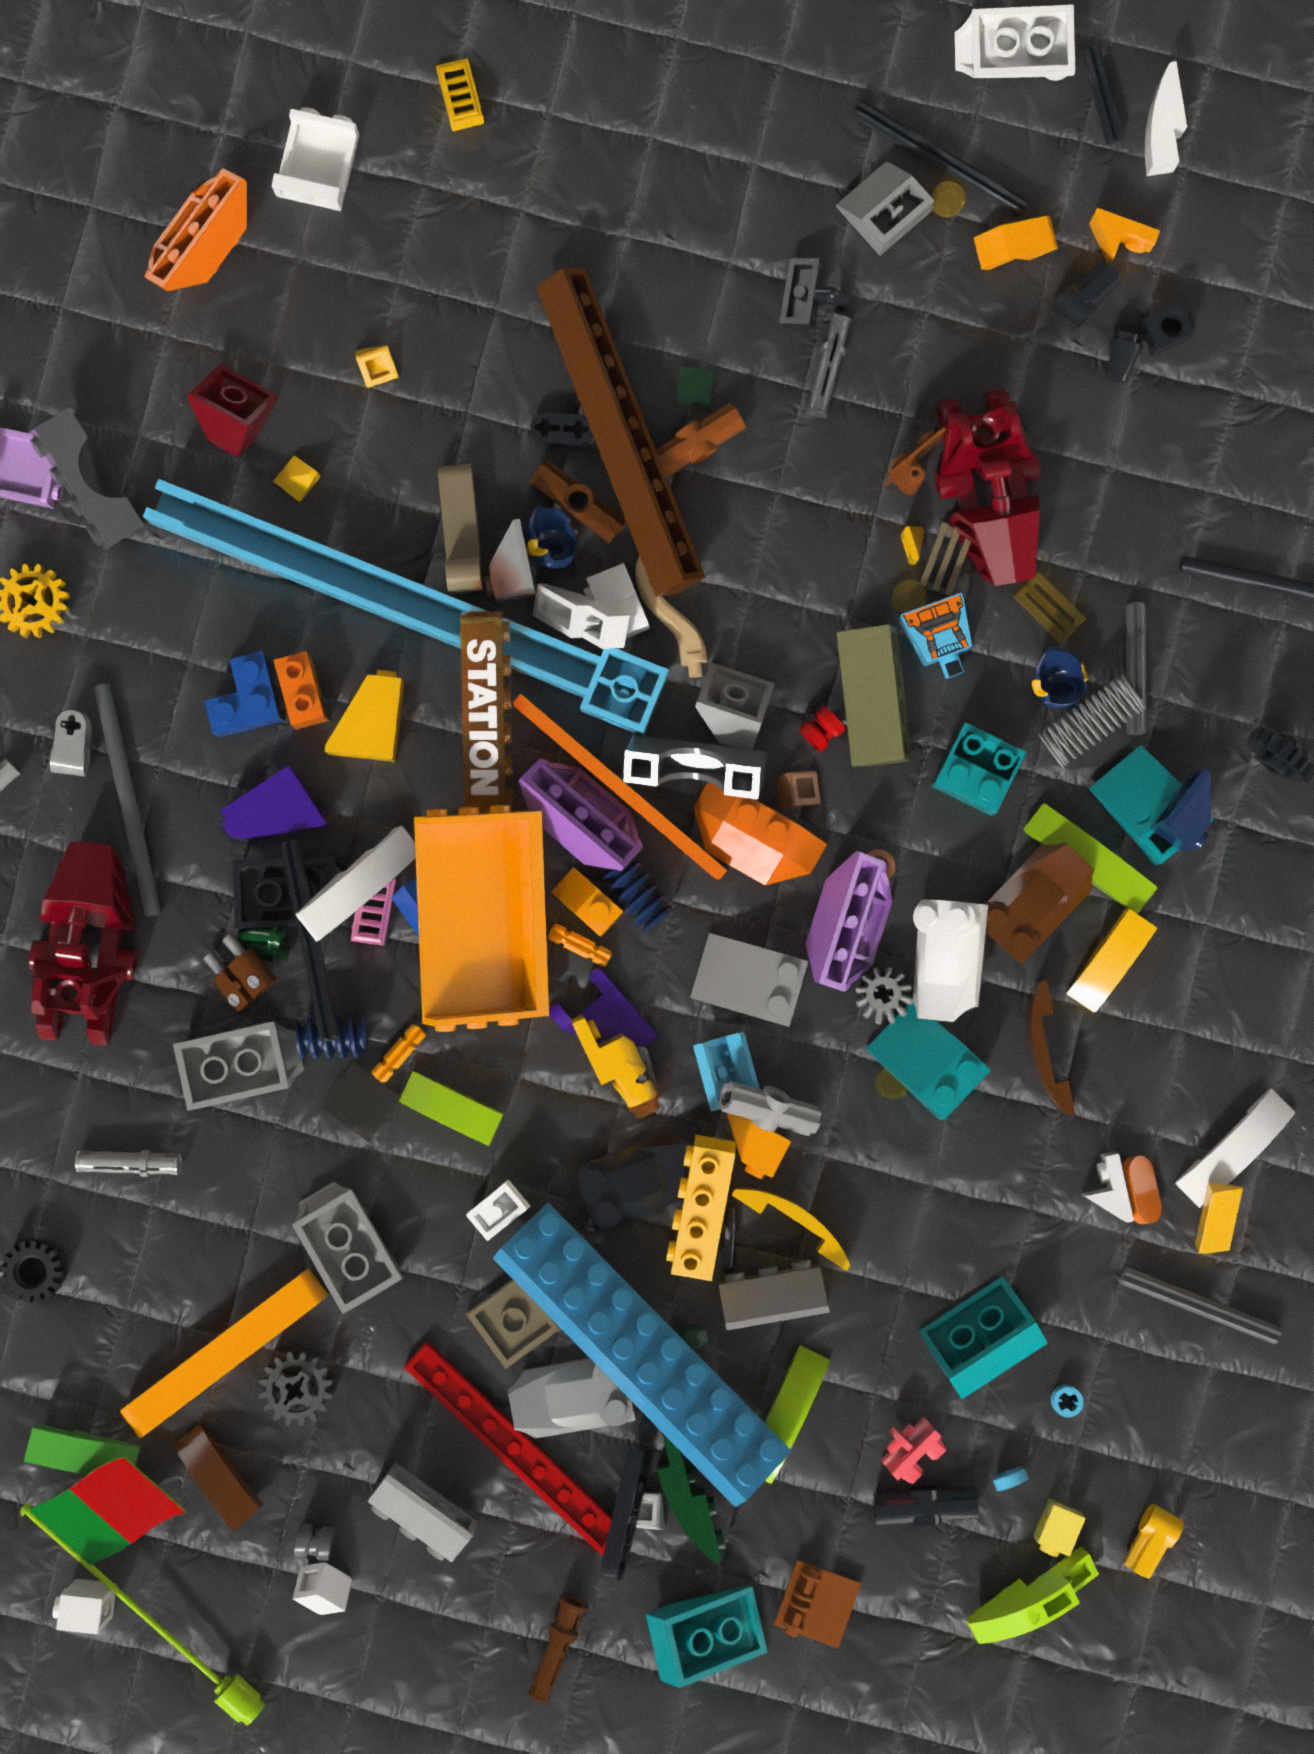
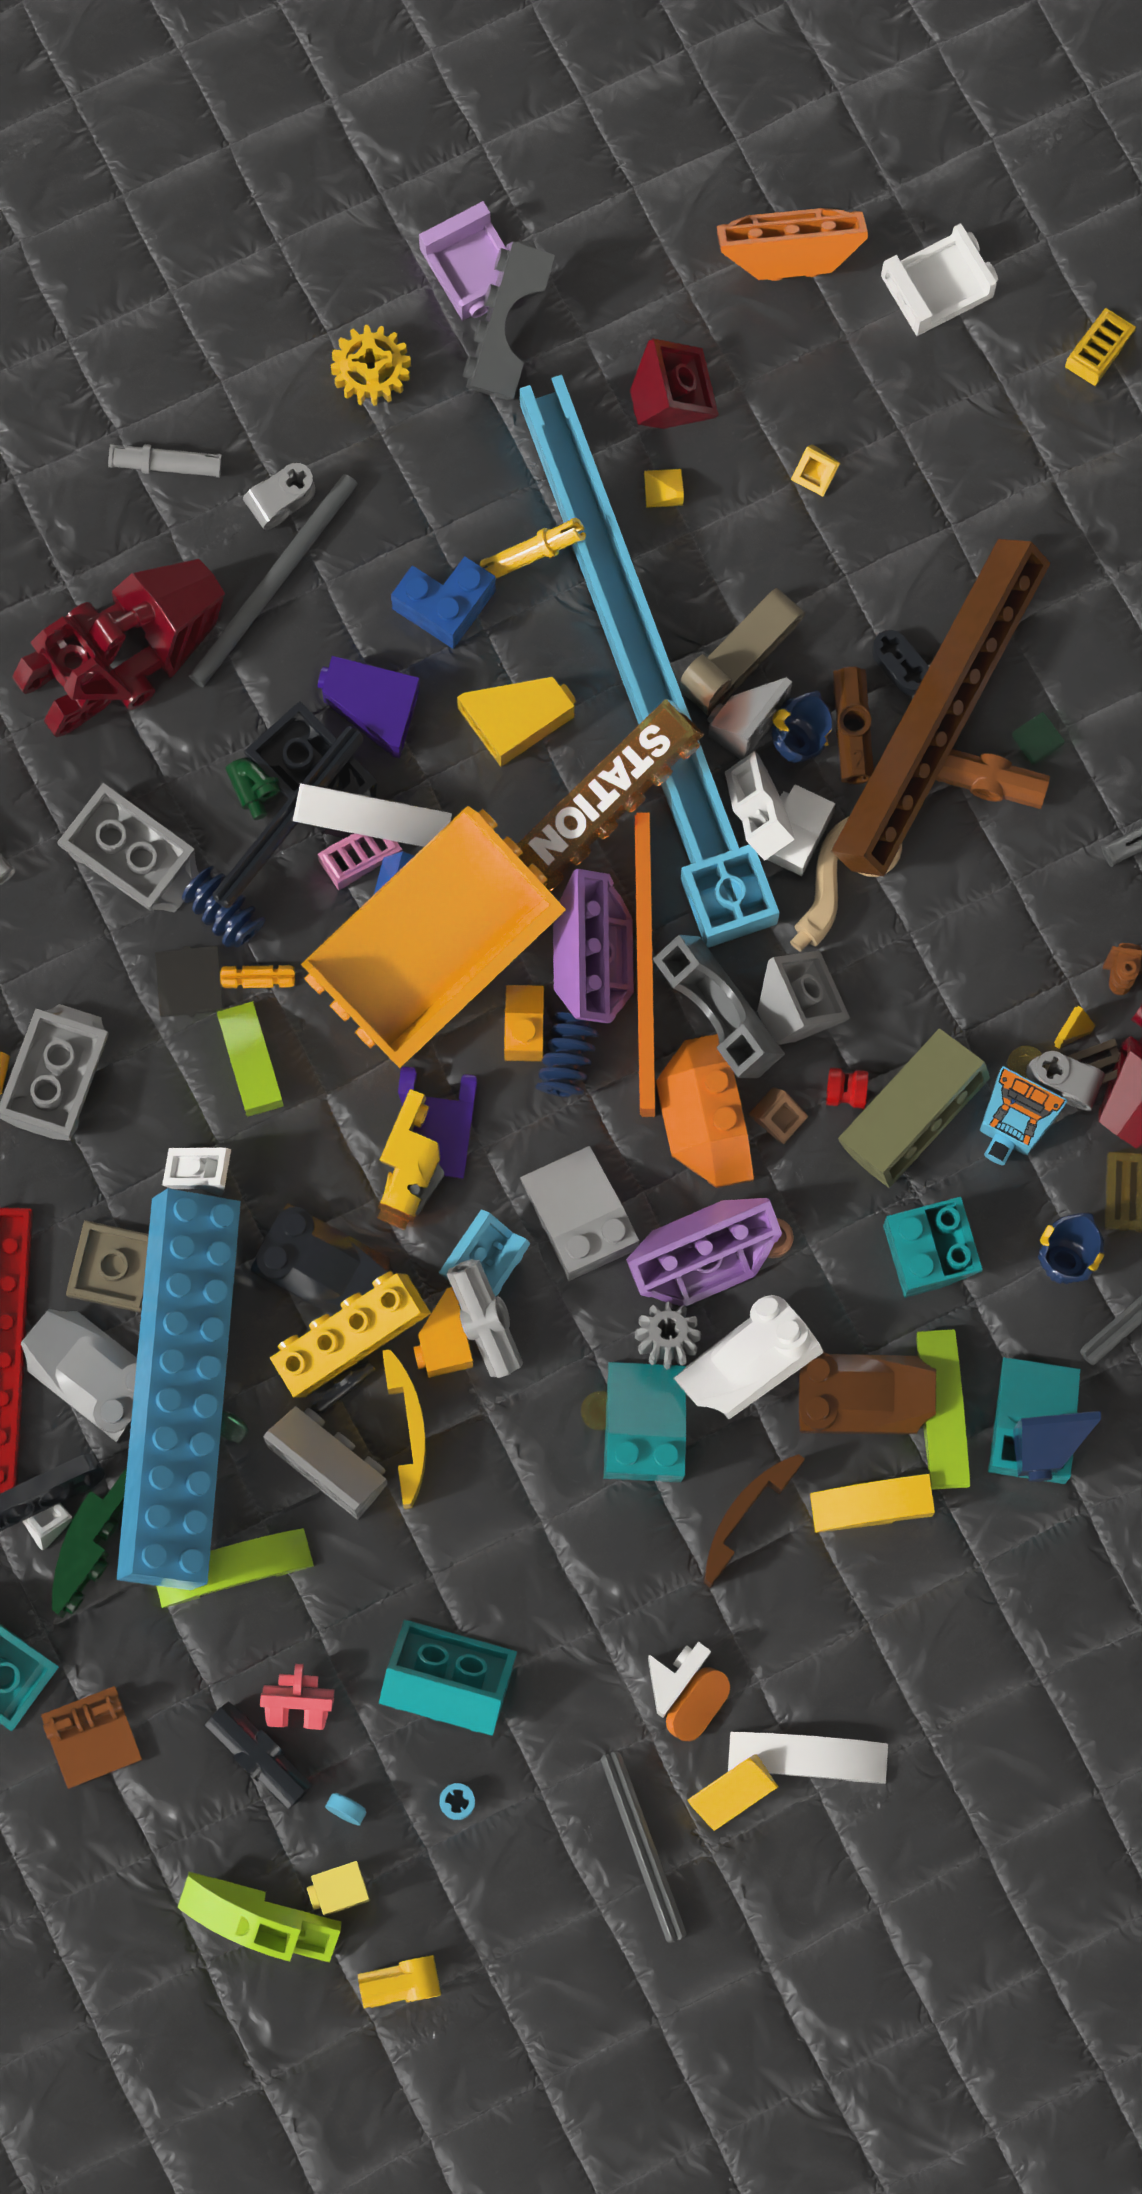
camera: 50 degrees right, 10 degrees down
(244, 977) = (209, 795): reddish brown piece -> none
(270, 596) = (545, 544): none -> yellow pin
(301, 690) = (491, 637): orange brick -> none
(579, 945) = (482, 1046): light orange axle -> none
(947, 579) = (1071, 1079): none -> light grey piece
(1130, 696) = (1007, 1295): light grey piece -> none

